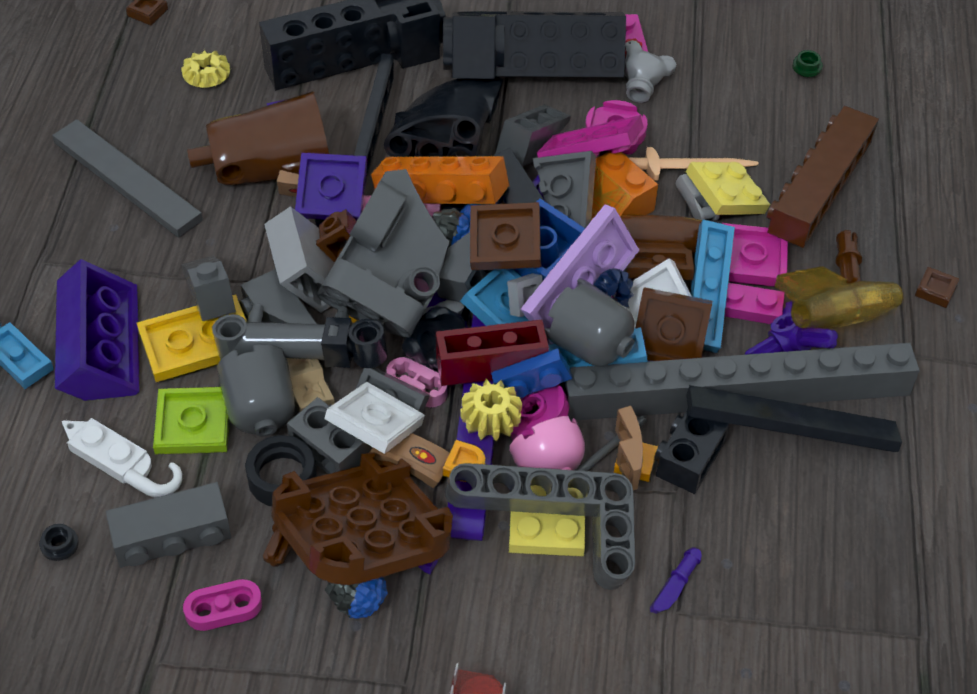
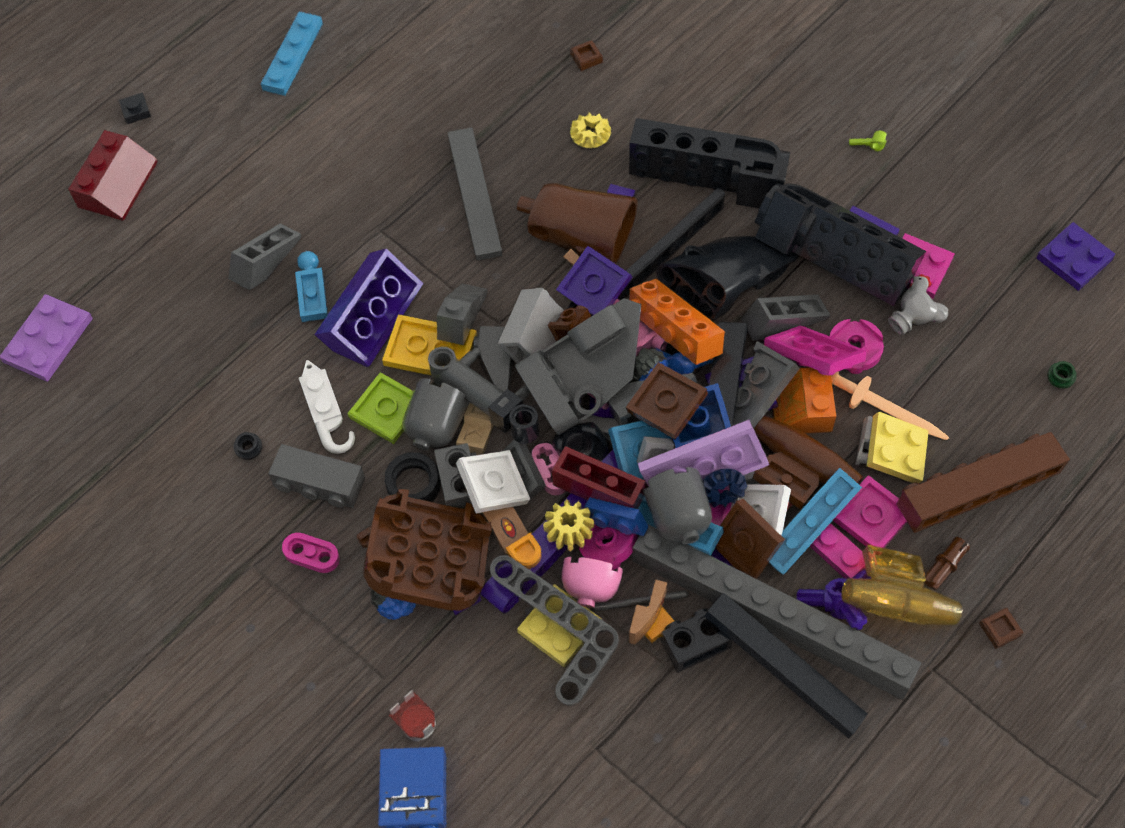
camera: 40 degrees right, 10 degrees up
(676, 582) = (608, 728): dark purple piece -> none

